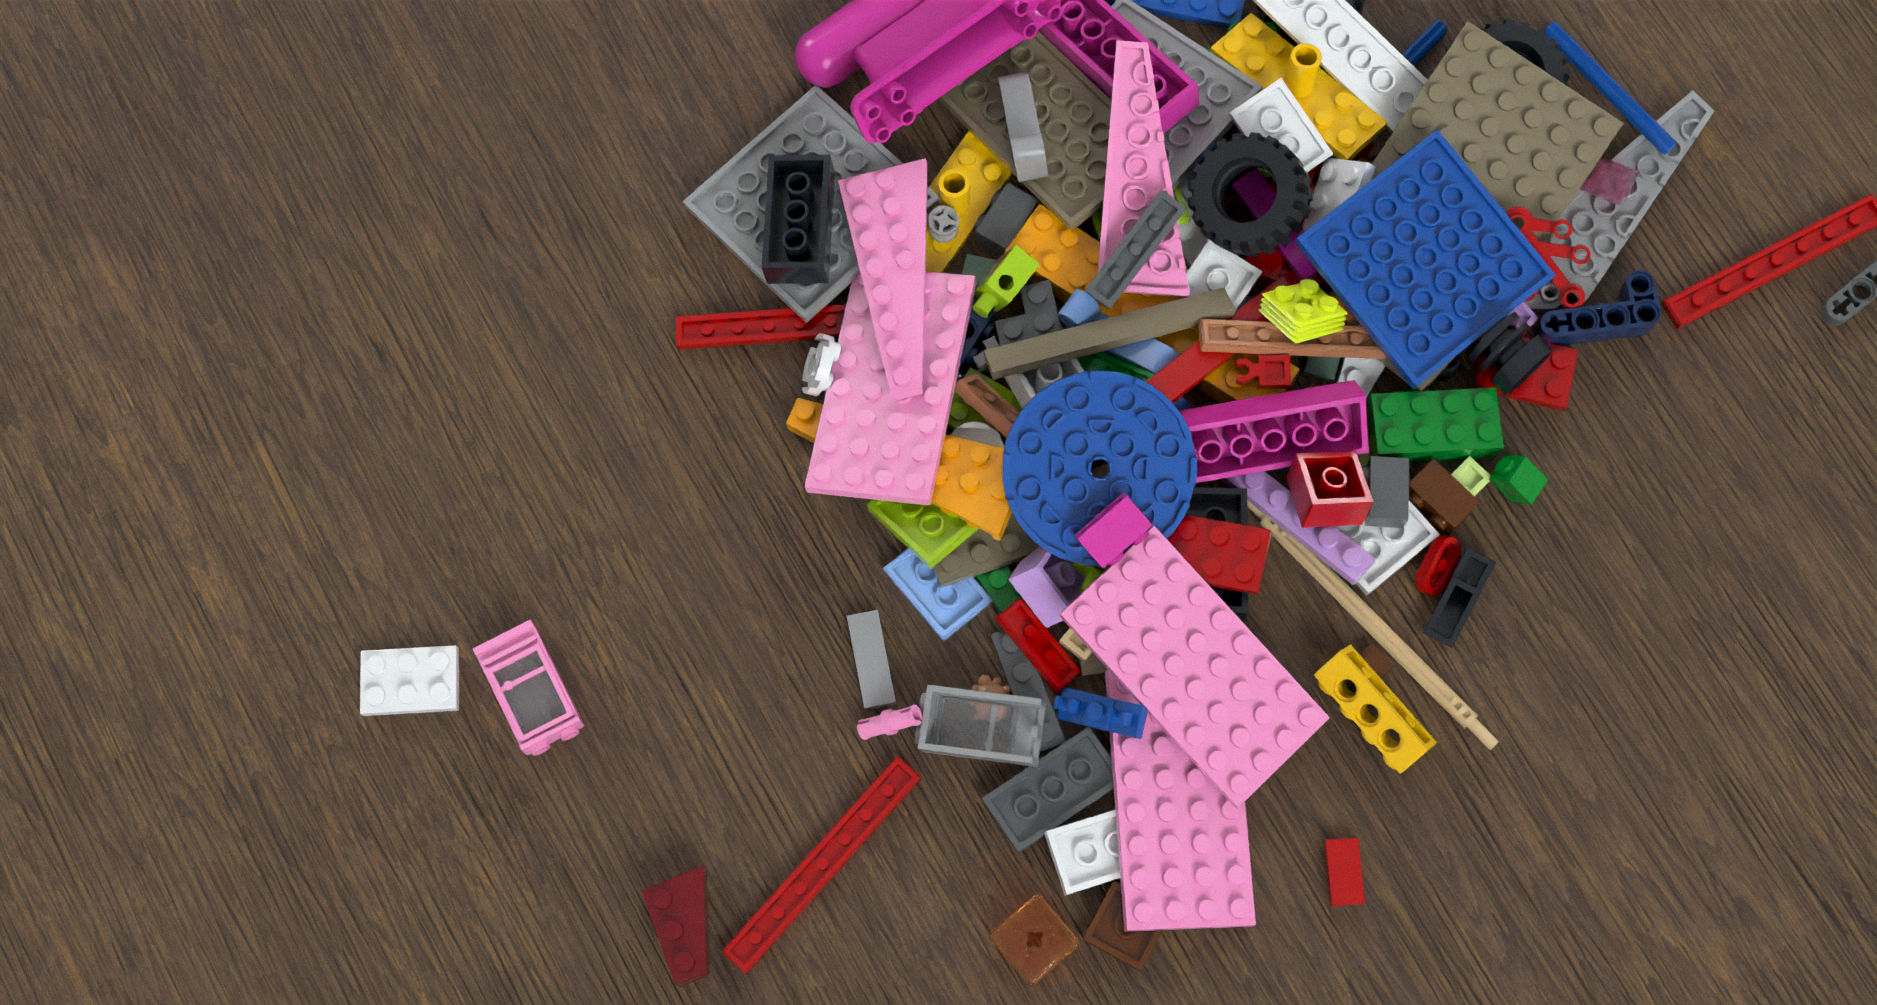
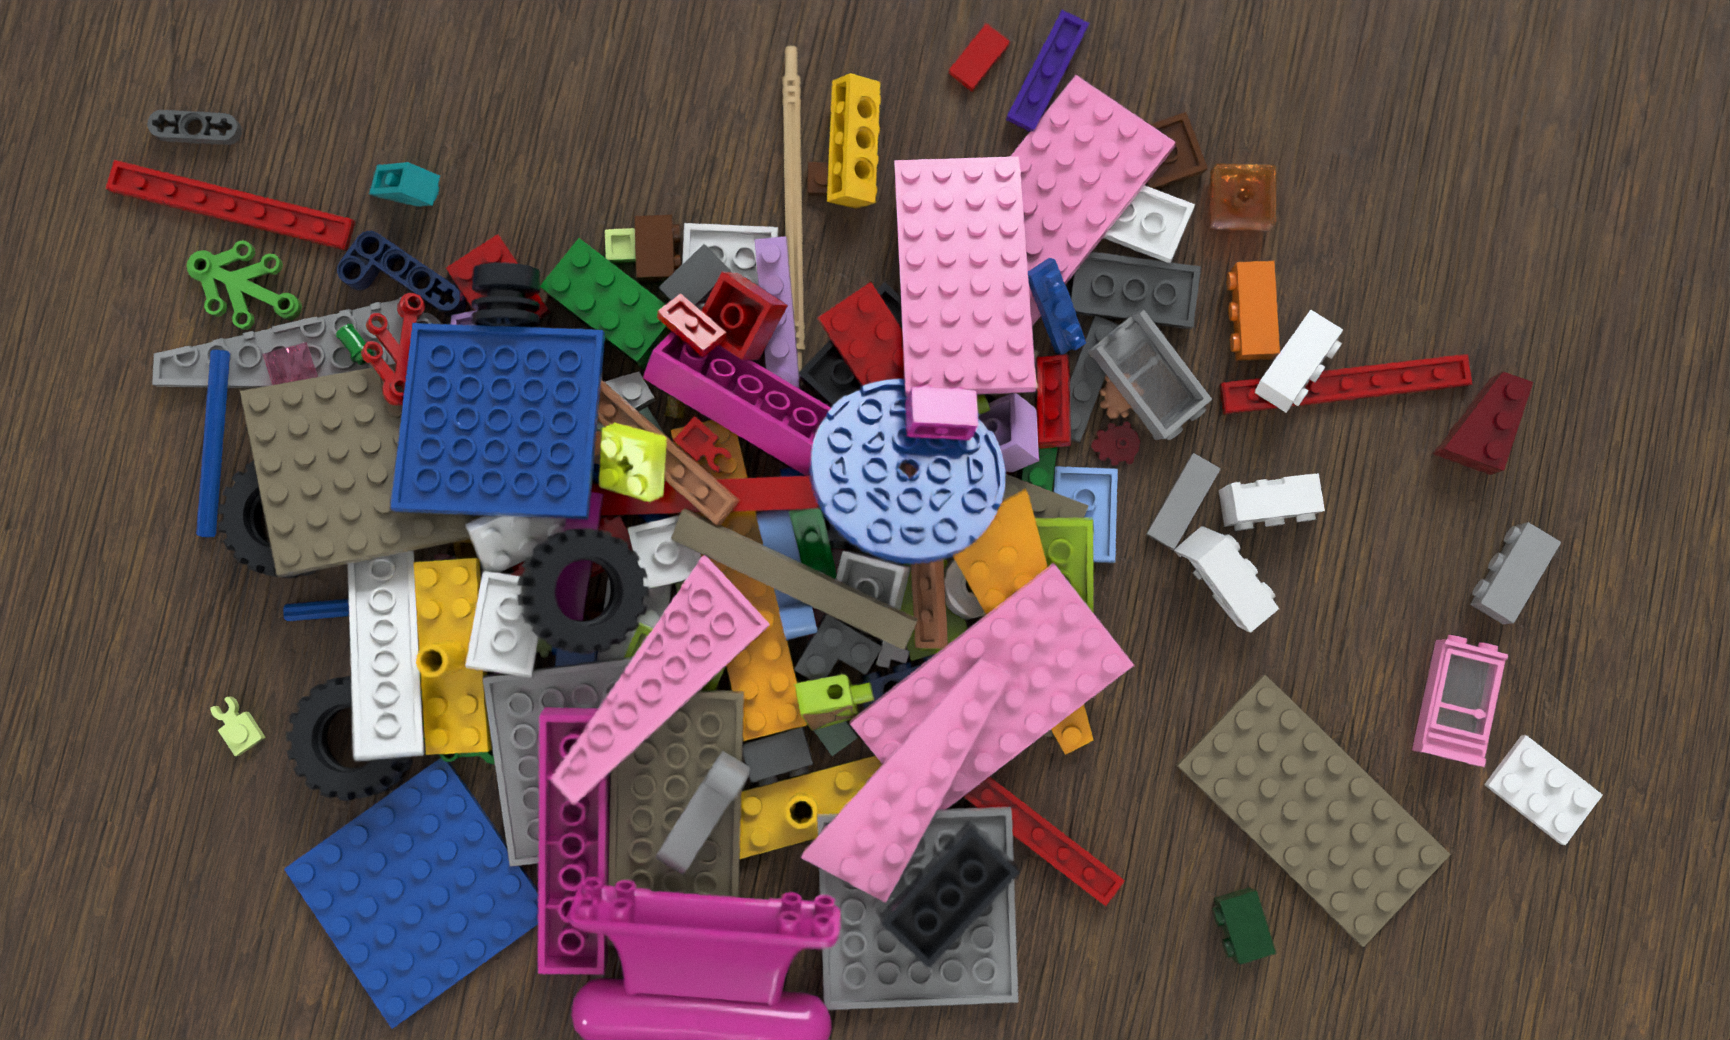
camera: 145 degrees left, 10 degrees up
(561, 388) = (1243, 926): none -> dark green brick
(566, 825) = (1514, 572): none -> light grey brick
(577, 516) = (1313, 810): none -> dark tan plate
(787, 625) = (1229, 577): none -> white wedge
(803, 713) = (1271, 501): none -> white wedge
(819, 365) = (1030, 763): white plate -> none
(874, 841) = (1300, 362): none -> white brick
(889, 722) = (1214, 438): bright pink pin -> none
(944, 217) = (832, 795): light grey wheel -> none
(946, 854) = (1253, 310): none -> orange brick
(960, 660) = (1117, 443): none -> dark red piece
(1135, 249) = (715, 622): dark grey plate -> none
(1280, 907) = (1047, 71): none -> dark purple plate
(1357, 445) = (691, 325): none -> plate
(1438, 565) = (707, 203): red plate -> none
(1459, 597) = (712, 169): black slope -> none
(1518, 479) = (588, 210): green brick -> none
(1584, 235) = (353, 342): none -> green pin
(1668, 382) = (405, 184): none -> teal slope
(1709, 210) = (237, 282): none -> bright green plant

